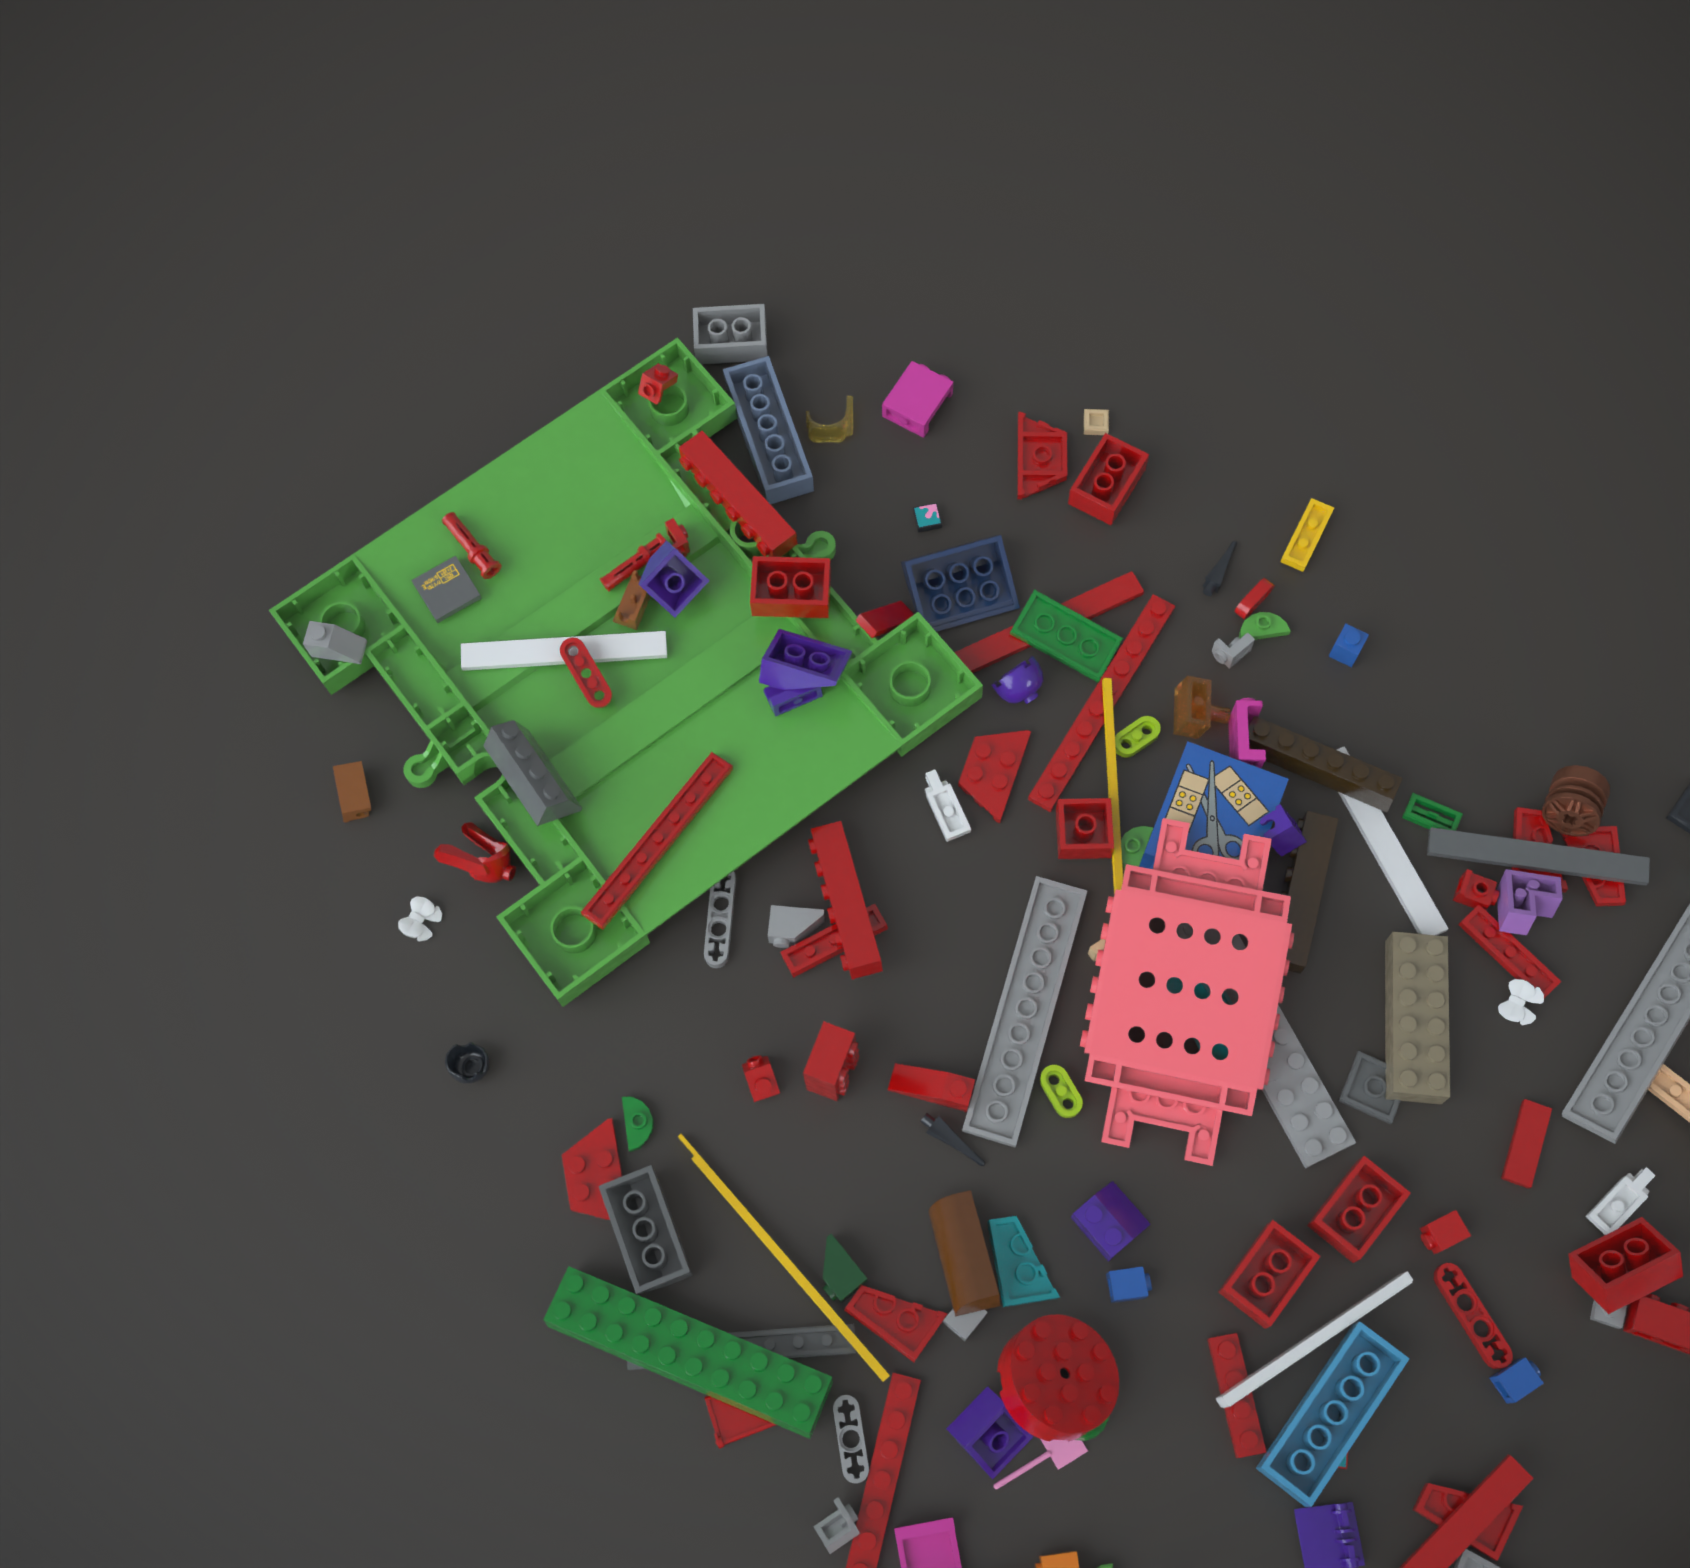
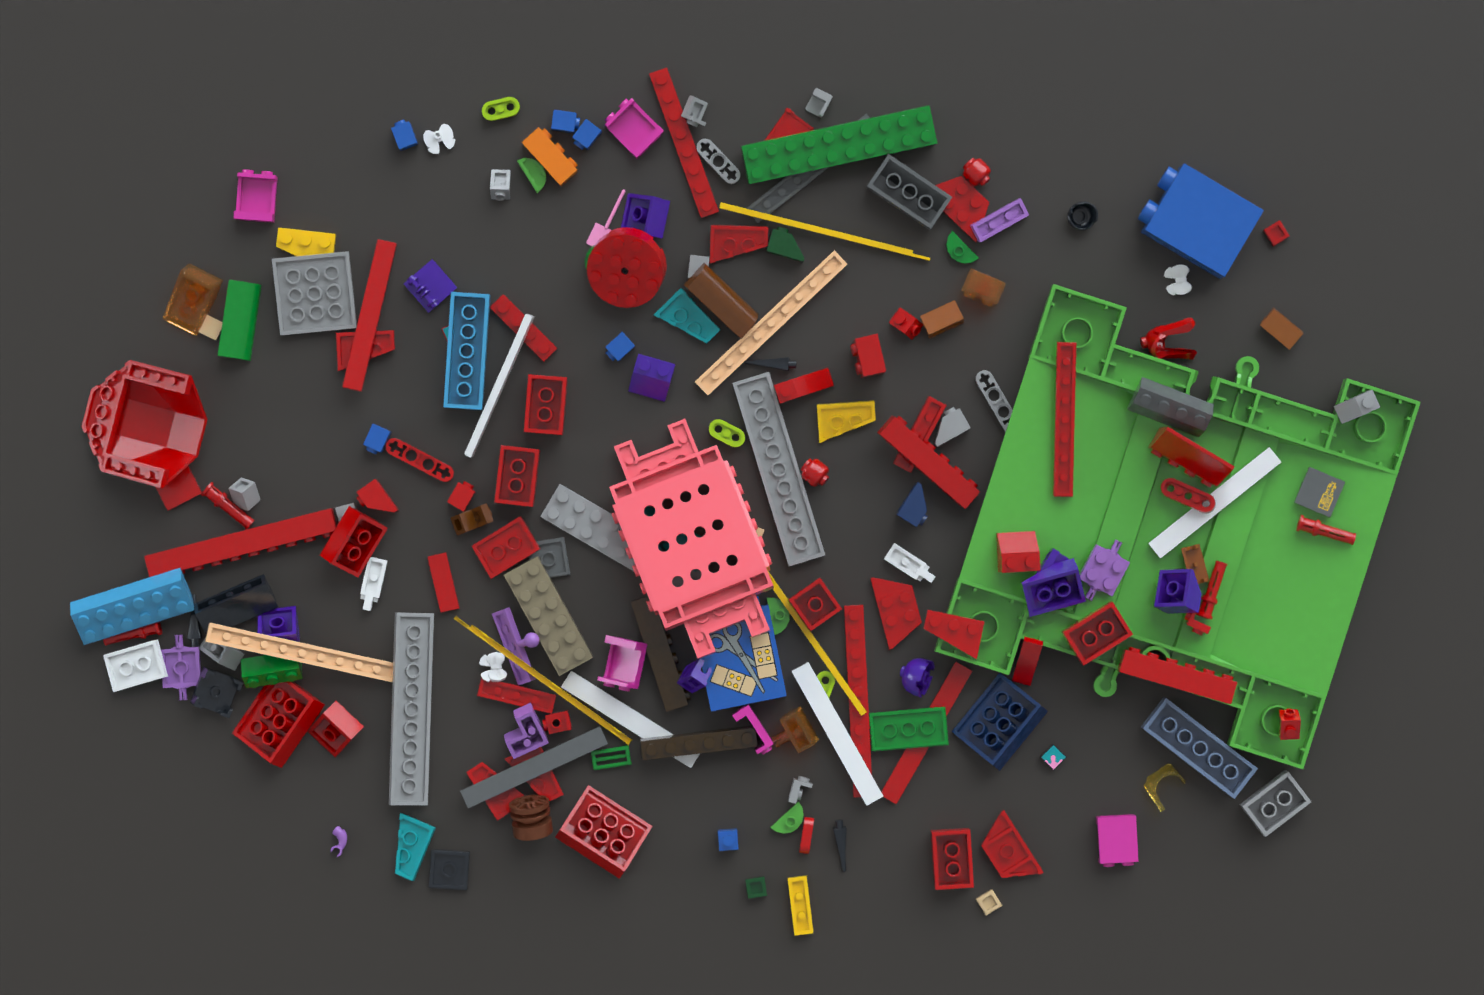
camera: 145 degrees right, 20 degrees up
(276, 899) = (1276, 233): none -> red tile
(341, 964) = (1199, 219): none -> blue brick
(549, 1200) = (976, 172): none -> red head
(552, 706) = (1190, 456): none -> red slope
(565, 1123) = (999, 220): none -> medium lavender plate
(641, 1058) = (983, 287): none -> clear orange brick
(675, 1424) = (819, 102): none -> light grey panel
(715, 1053) = (942, 319): none -> dark orange hinge
(733, 656) = (1103, 570): none -> medium lavender plate
(816, 729) = (1017, 552): none -> slope
(898, 861) = (914, 507): none -> dark blue slope
(912, 1020) = (842, 417): none -> yellow wing
(919, 1187) = (771, 323): none -> light nougat plate
(944, 691) = (956, 630): none -> red wing
(985, 975) = (815, 472): none -> red head
(1151, 679) = (837, 733): none -> white tile
(1346, 581) = (756, 887): none -> dark green plate
(1357, 904) = (624, 663): none -> dark pink panel
(1423, 1132) = (506, 547): none -> red plate
(1448, 1194) = (472, 519): none -> reddish brown brick
(1470, 948) = (544, 680): none -> yellow piece
(1480, 1007) = (513, 643): none -> medium lavender plate
(1490, 740) = (603, 831): none -> red slope
(1559, 1303) = (376, 497): none -> red slope

